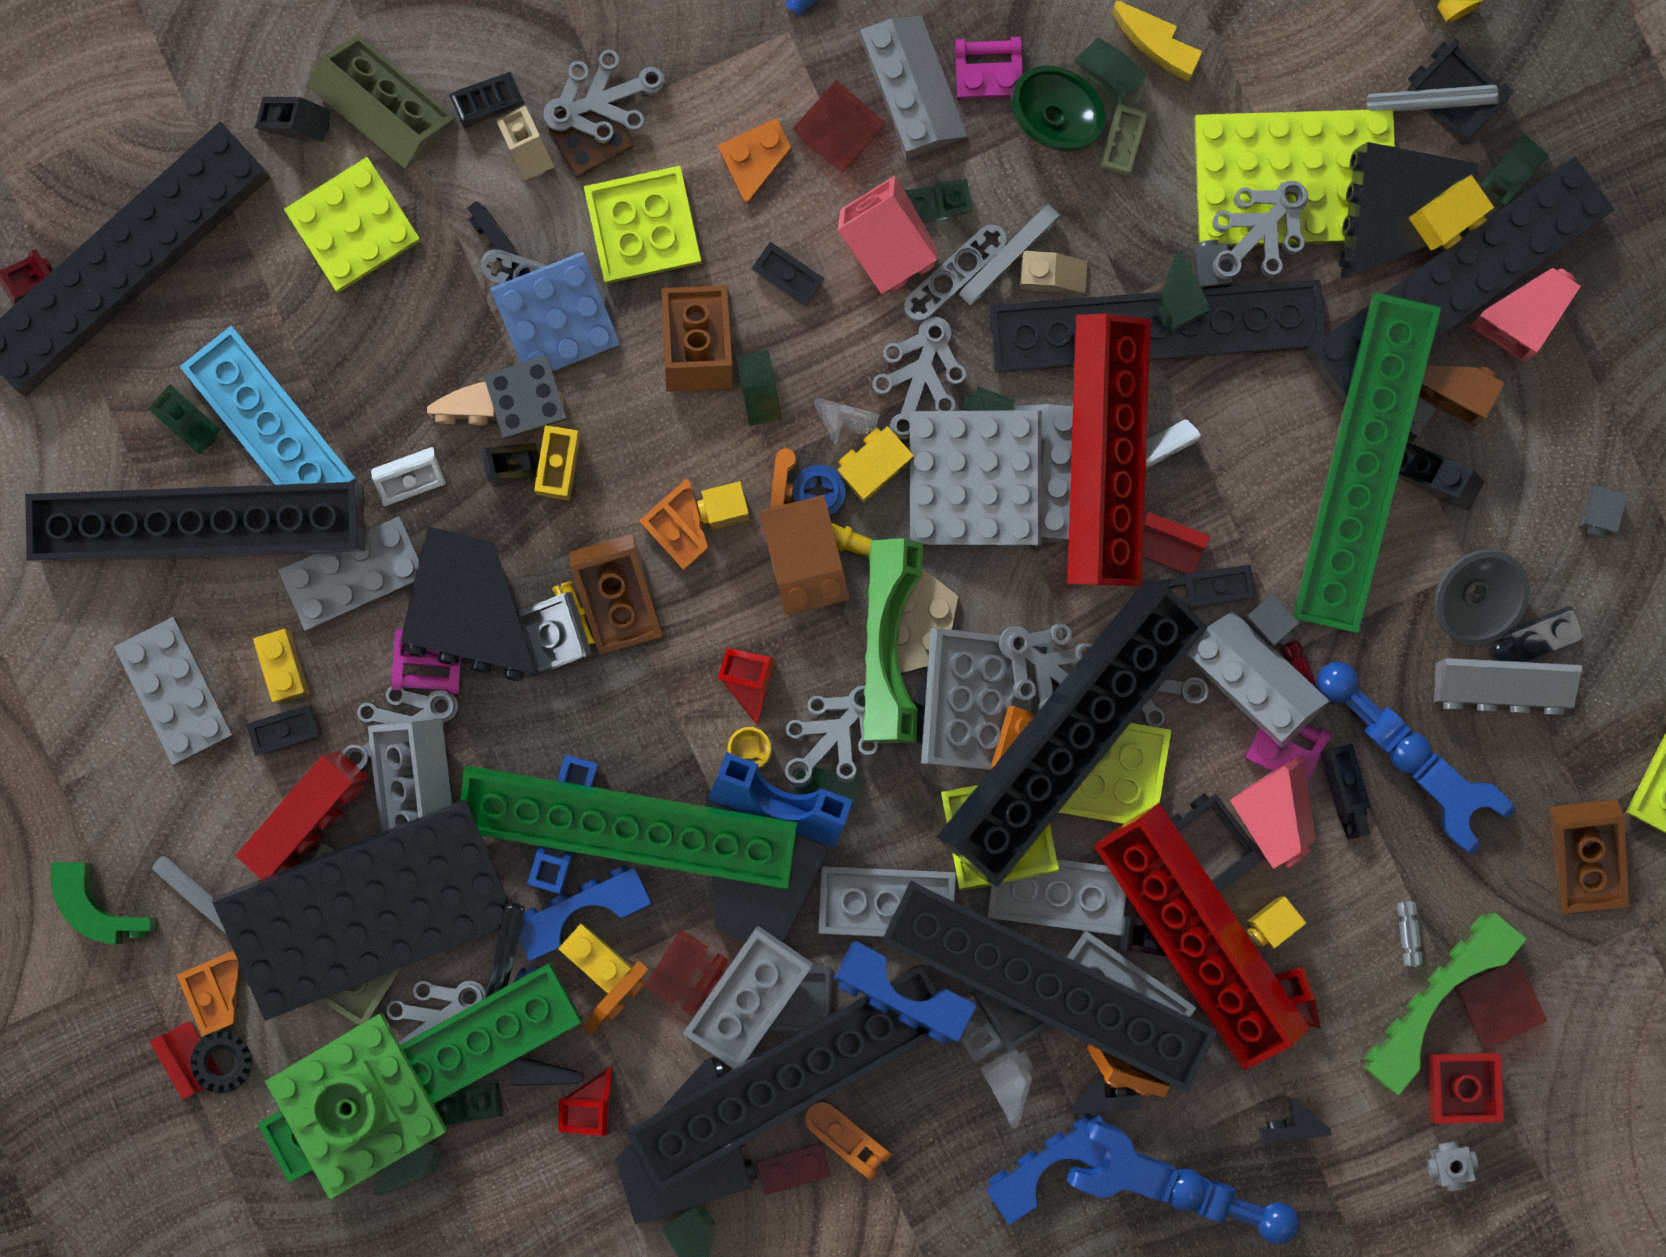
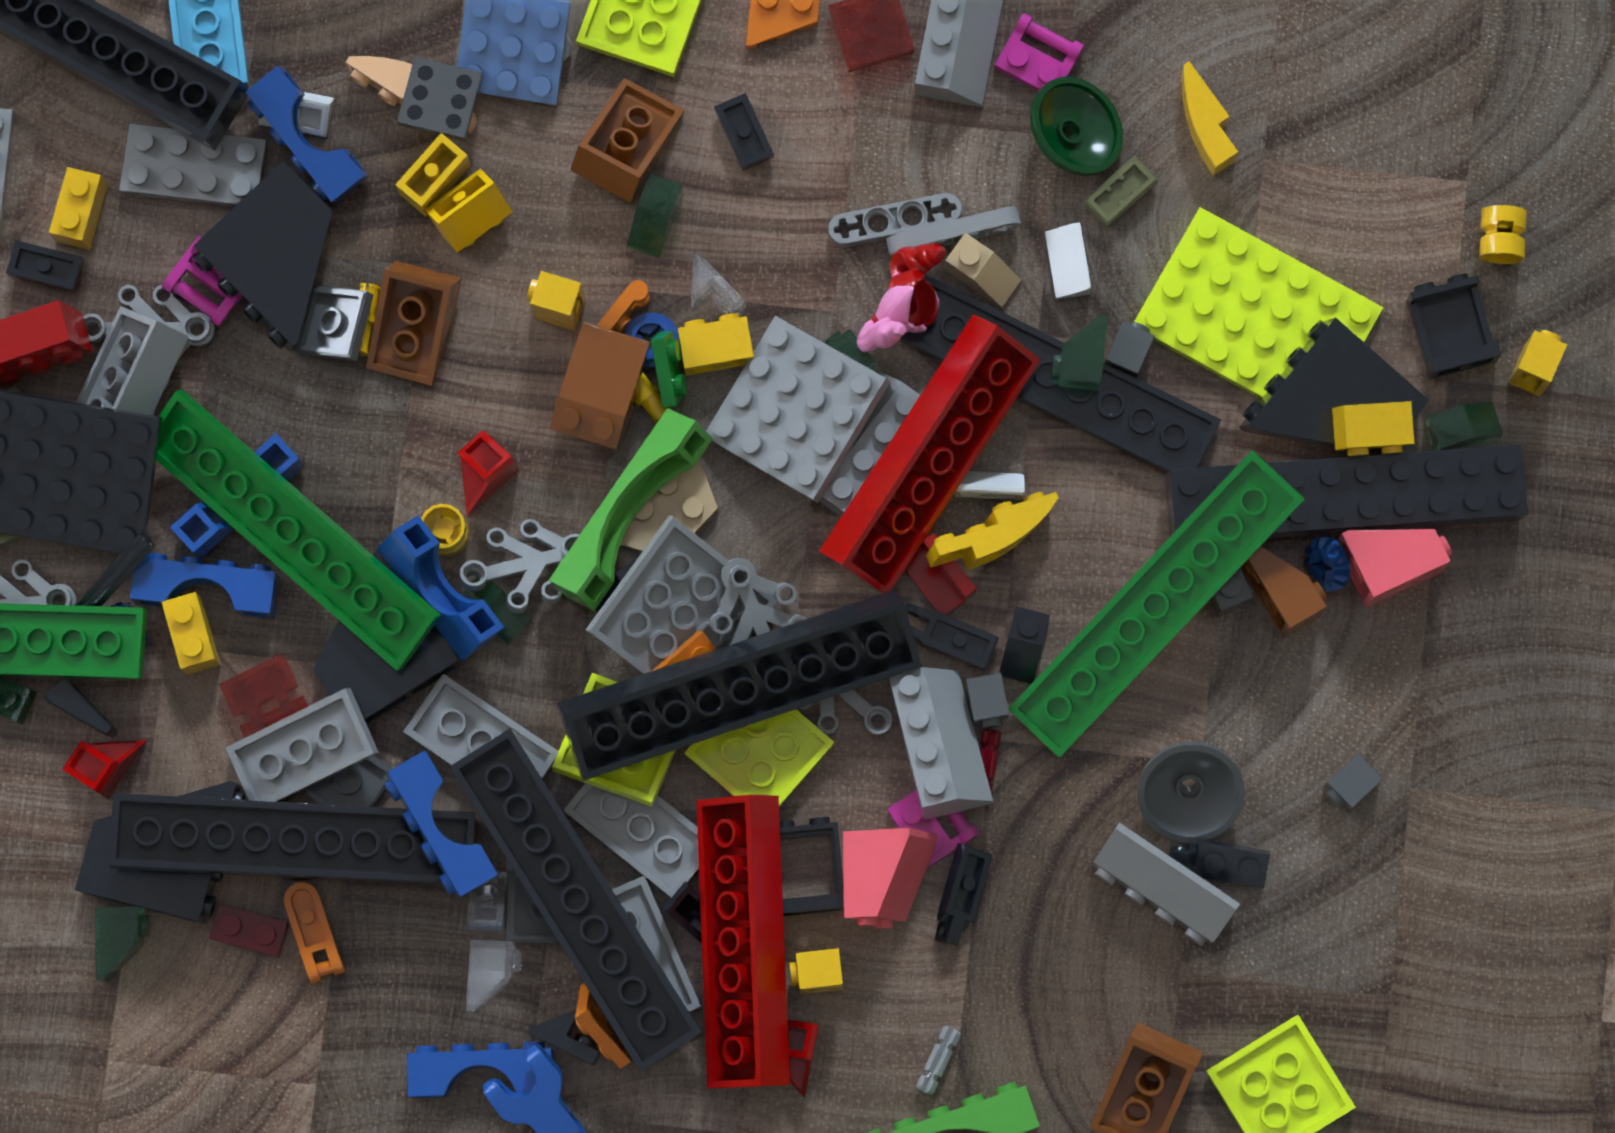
camera: 30 degrees right, 5 degrees down
(392, 479) = (279, 100): none -> blue arch
(510, 463) = (389, 149): black slope -> none
(605, 475) = (468, 210): none -> yellow brick
(611, 1004) = (183, 678): orange wing -> none
(678, 526) = (504, 295): orange wing -> none
(843, 498) = (666, 357): none -> green plate
(887, 236) = (852, 149): coral slope -> none
(921, 370) = (809, 287): light grey plant -> none
(941, 200) = (916, 147): clear green slope -> none
(1013, 335) = (909, 299): none -> hair
(1111, 70) = (1148, 124): clear green slope -> none
(1116, 223) = (1068, 261): none -> white slope
(1201, 481) = (996, 536): none -> yellow slope
(1263, 225) = (1196, 339): light grey plant -> none
(1273, 558) = (1024, 645): none -> black slope
(1413, 755) = (1041, 898): blue piece -> none
(1434, 98) = (1425, 318): light grey axle -> none
(1440, 476) = (1219, 659): black slope -> none
(1479, 337) = (1330, 552): none -> blue gear
(1547, 80) = (1538, 362): none -> yellow brick

